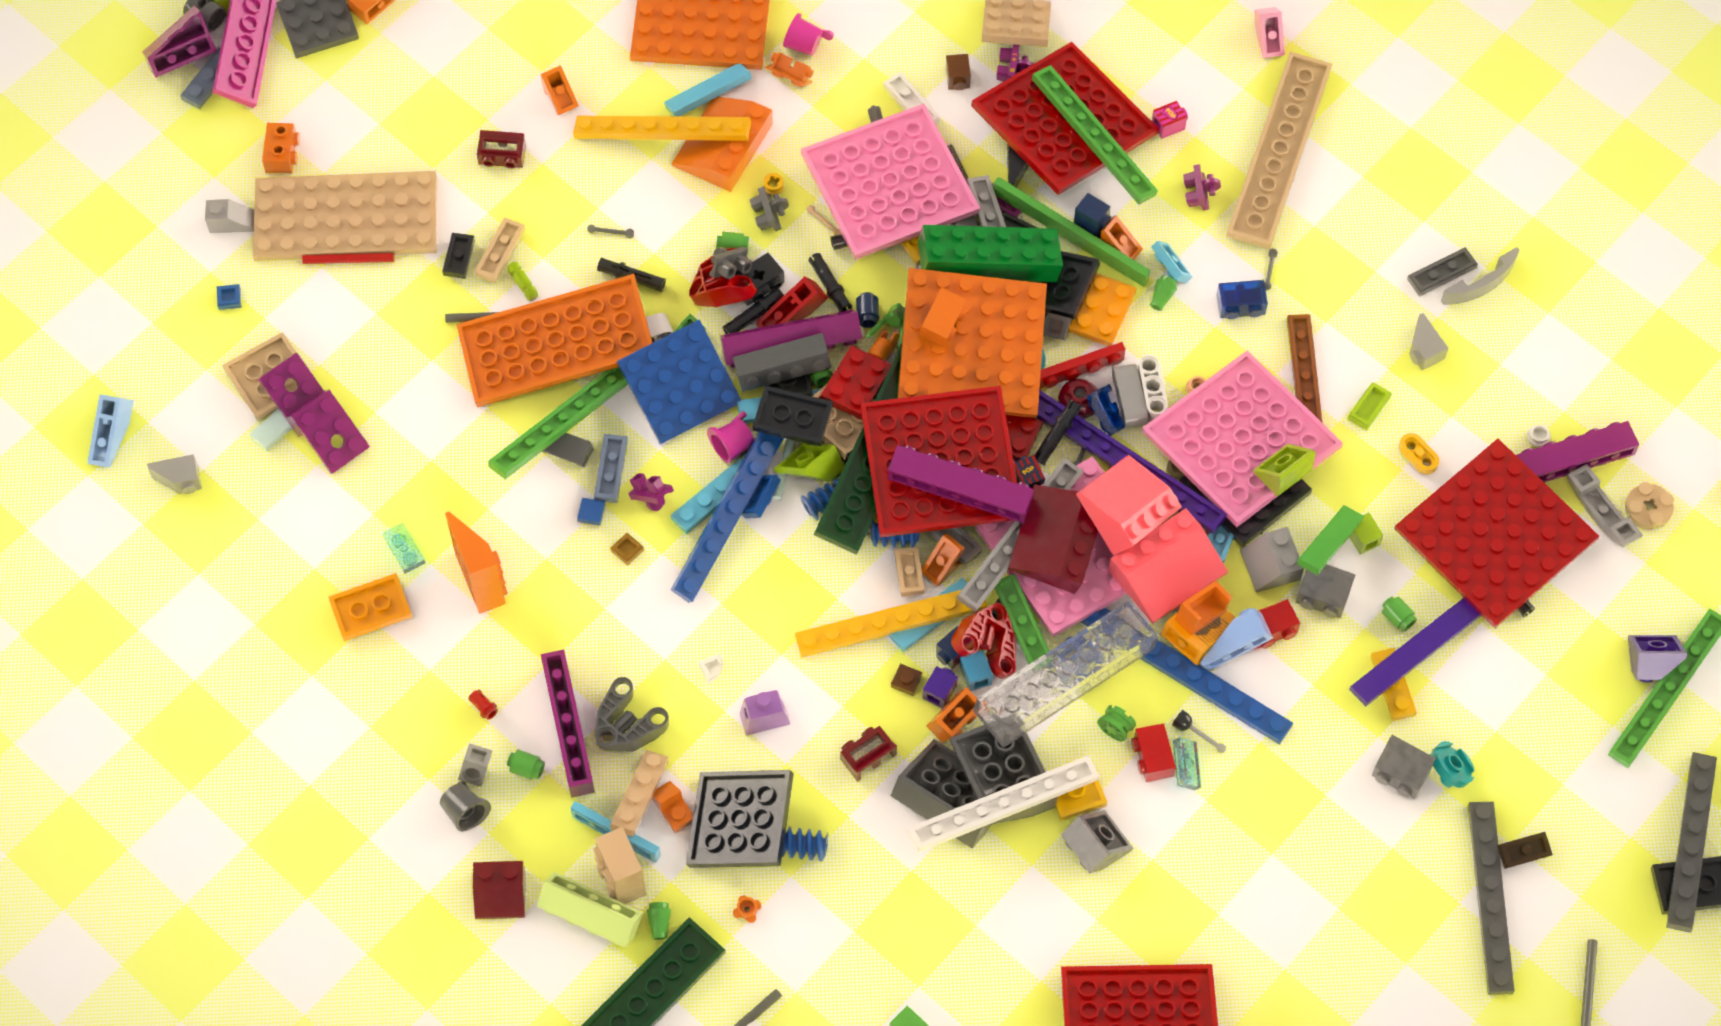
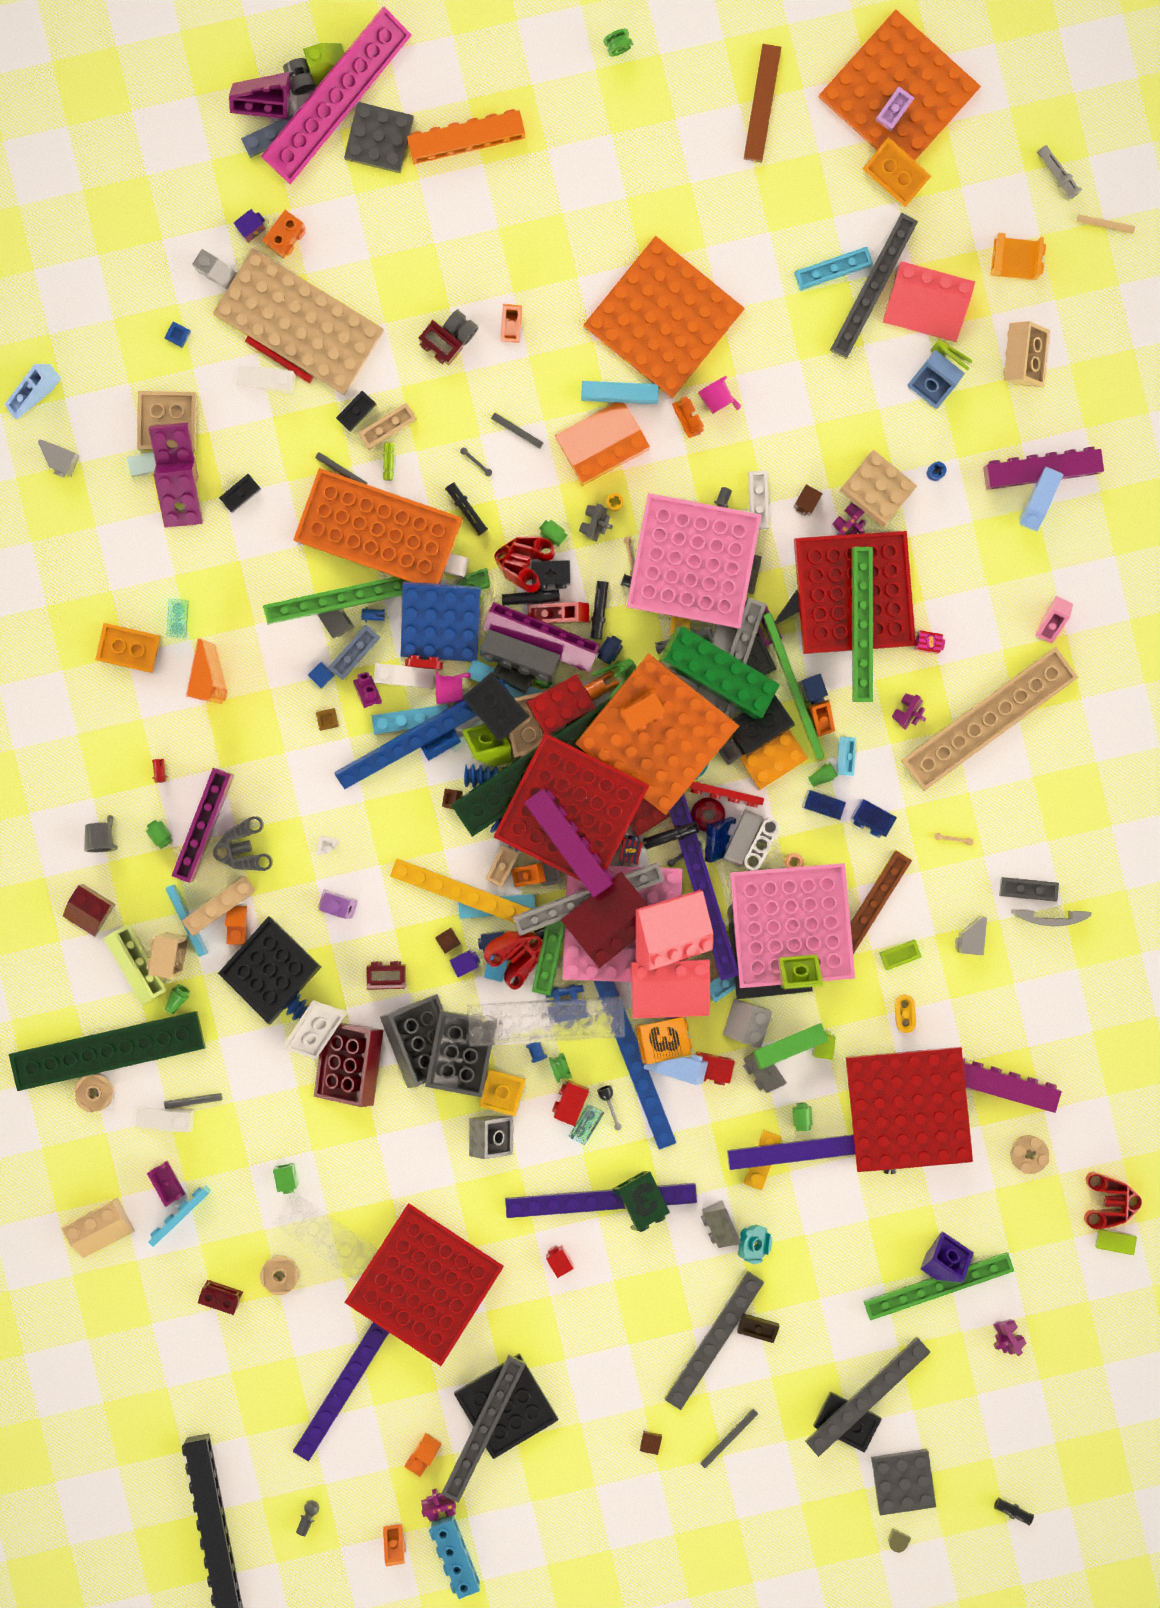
camera: 35 degrees right, 25 degrees up
(239, 160) = (250, 225): none -> dark purple brick
(348, 279) = (266, 379): none -> white slope
(390, 395) = (240, 493): none -> black plate
(475, 765) = (124, 814): light grey brick -> none
(512, 122) = (460, 327): none -> dark grey wheel
(604, 423) = (373, 614): none -> blue pin
(631, 180) = (517, 430): none -> dark grey bar
(662, 128) = (563, 406): yellow plate -> none
(676, 458) = (403, 676): none -> white slope
(689, 435) = (431, 663): none -> red plate
(729, 262) = (530, 554): dark grey hips -> none
(753, 905) = (232, 1027): orange plate -> none
(808, 542) = (450, 796): none -> reddish brown plate
(830, 846) = (314, 1029): none -> white tile
(888, 866) = (350, 1065): none -> dark red slope
(954, 716) = (458, 991): orange brick -> none
(1003, 803) = (440, 1083): white plate -> none
(1079, 725) = (536, 1052): none -> blue bush
(1184, 316) = (823, 804): none -> clear blue brick
(1203, 608) = (669, 1035): orange panel -> none
(1260, 833) = (589, 1201): none -> dark purple plate
(1265, 919) = (559, 1260): none -> red brick
(1272, 254) = (923, 794): hinge -> none
(1304, 794) = (642, 1200): none -> dark green panel
(1350, 267) = (969, 841): none -> tan hinge
(1538, 435) = (996, 1055): white plate -> none
(1601, 509) = (996, 1137): light grey slope -> none

